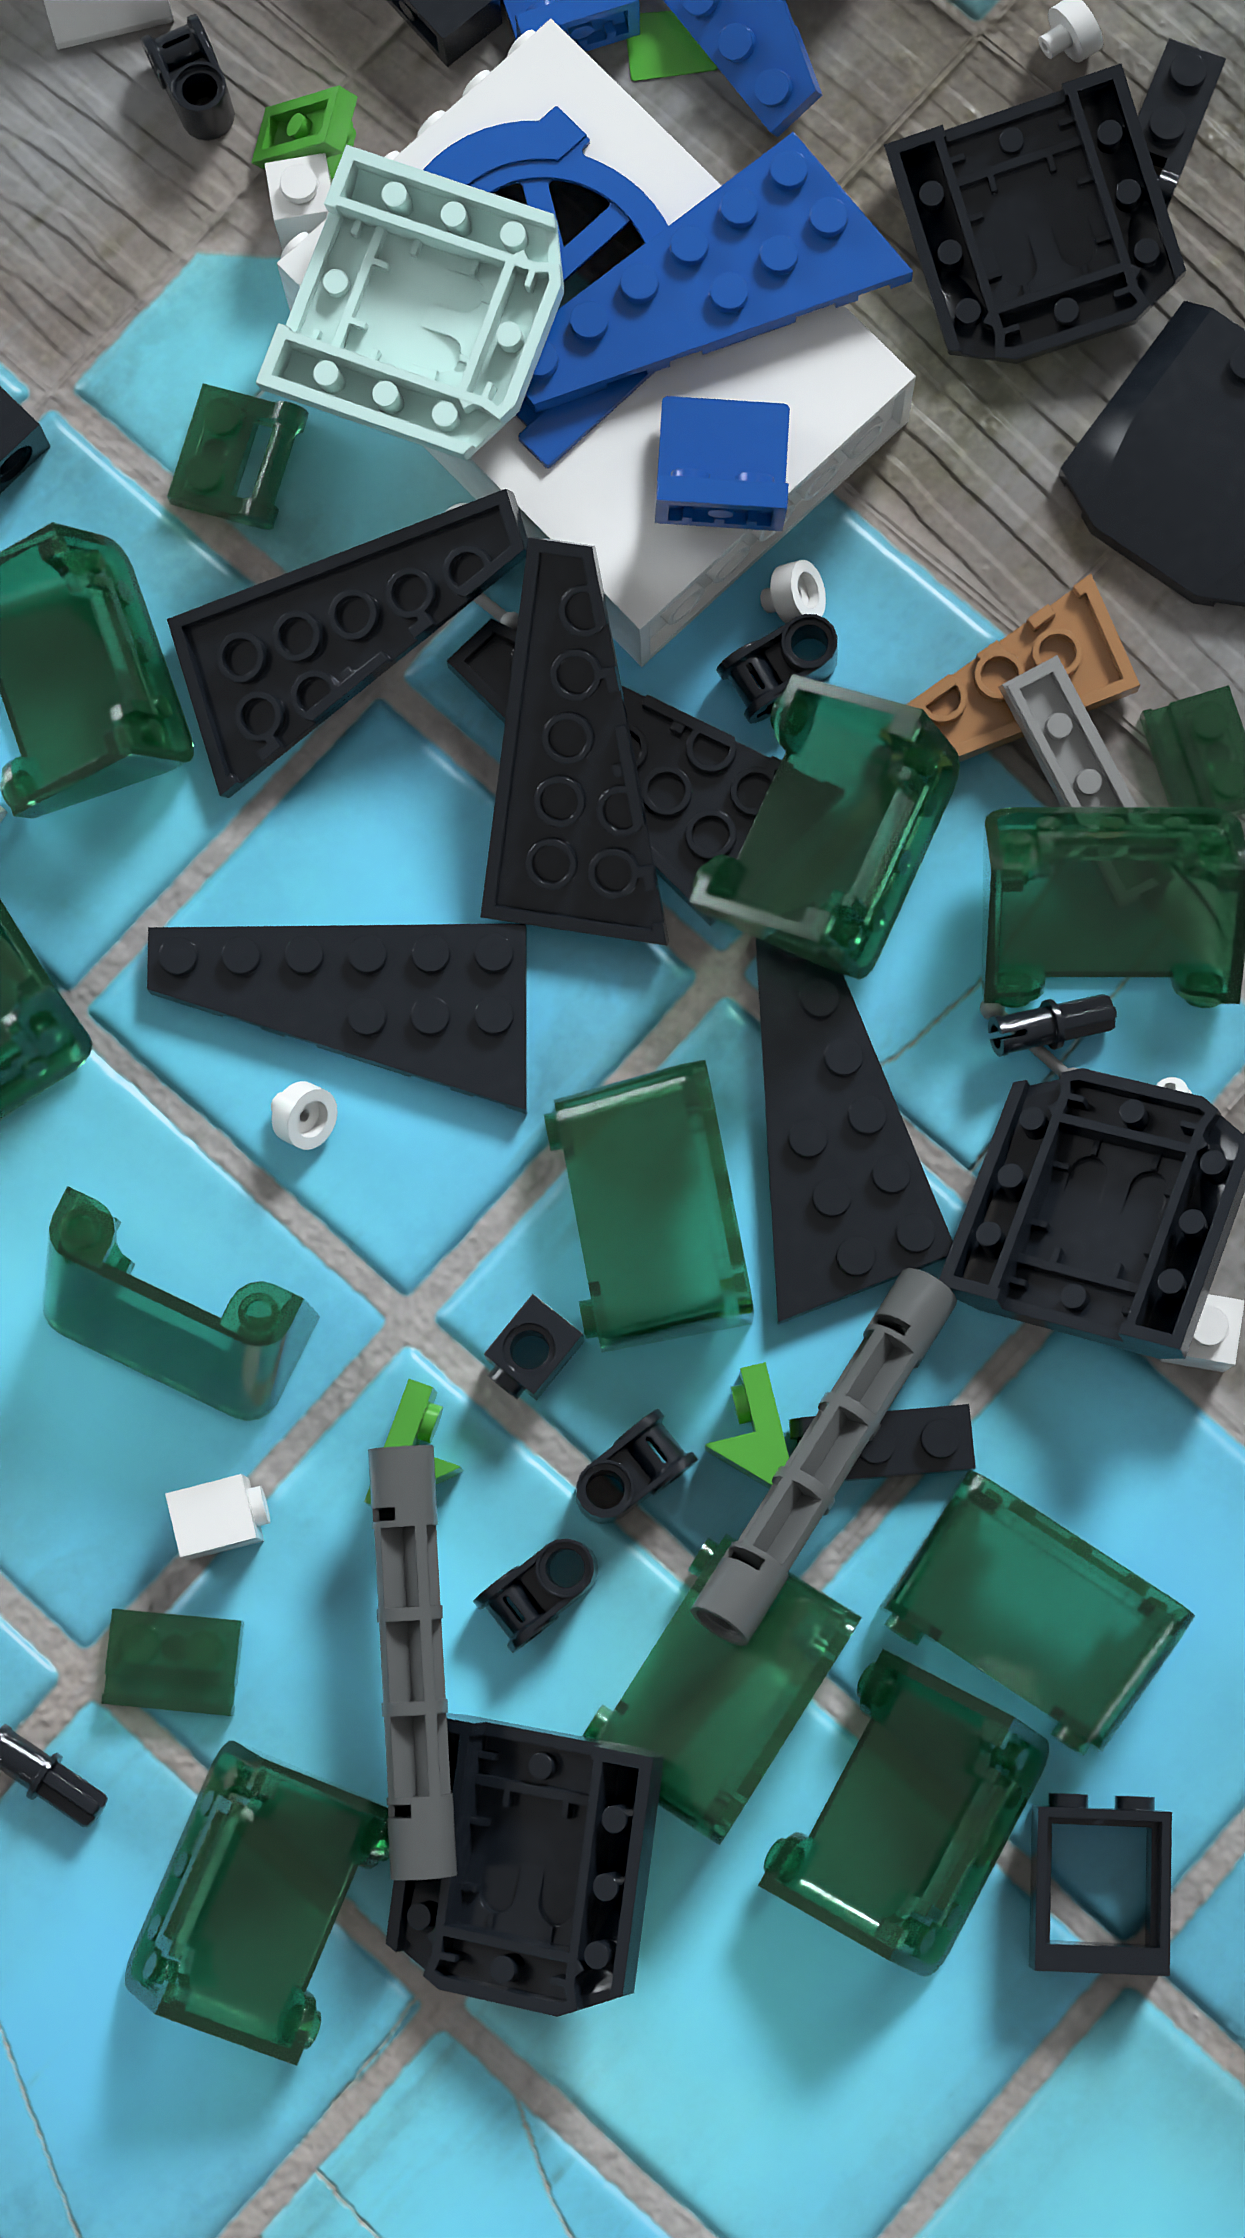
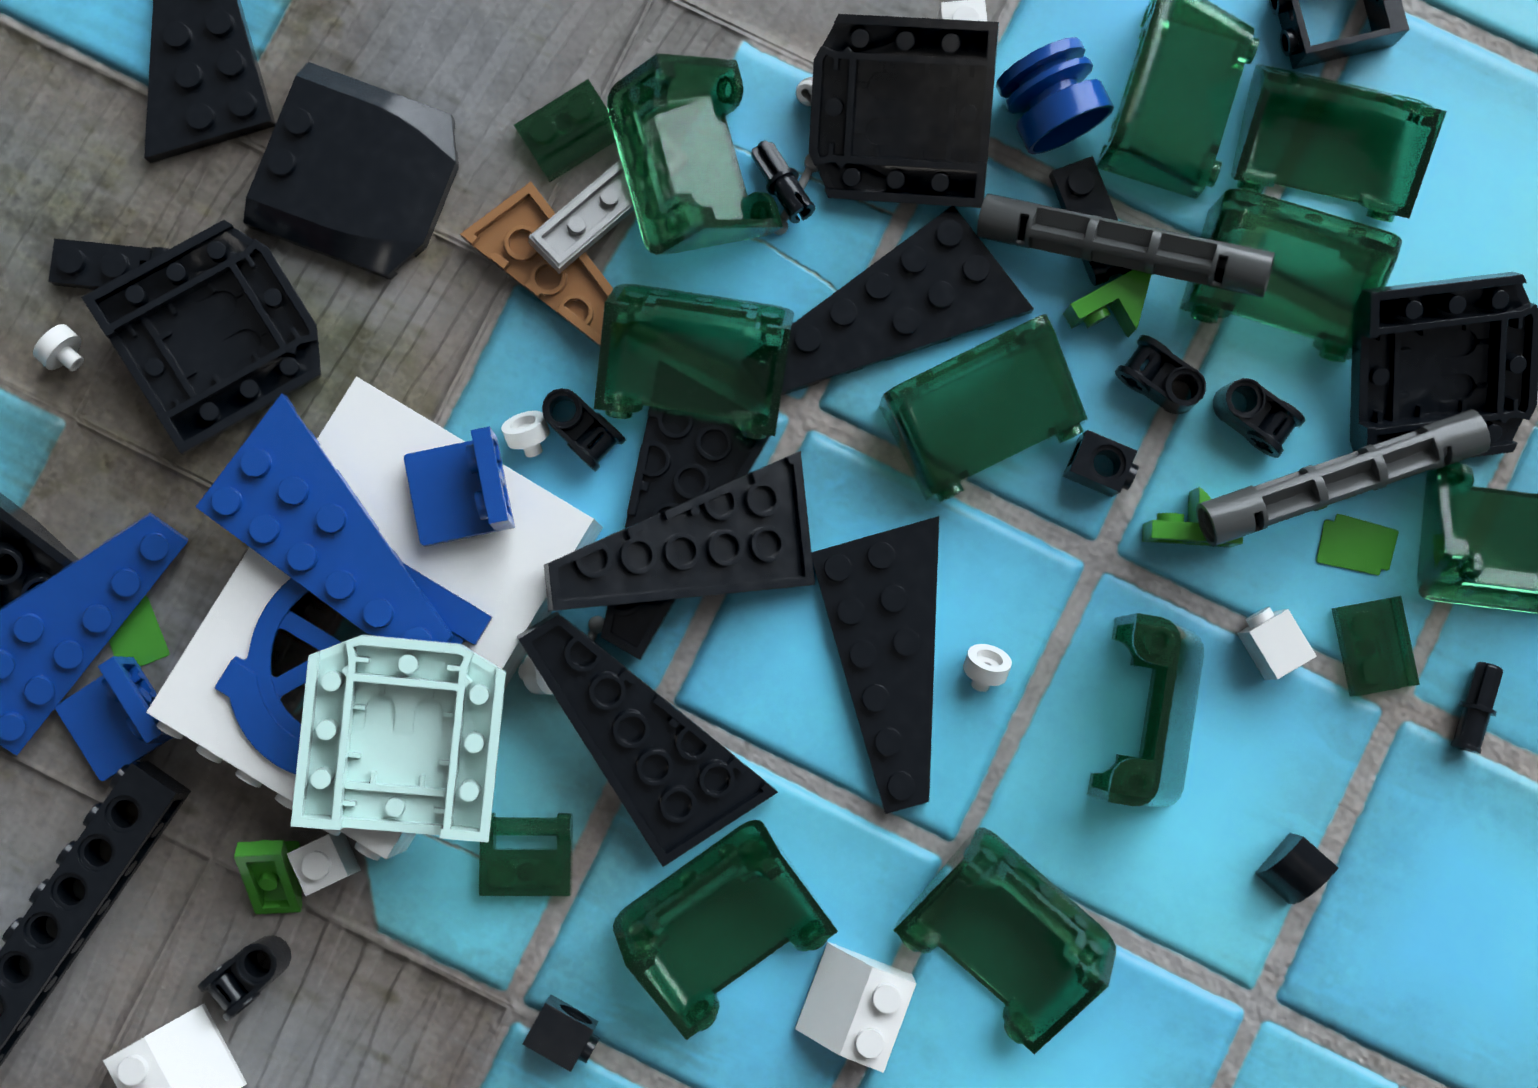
camera: 110 degrees left, 5 degrees up
(321, 1684) = (1356, 545): none -> bright green sticker
(1069, 1425) = (1054, 96): none -> blue wheel

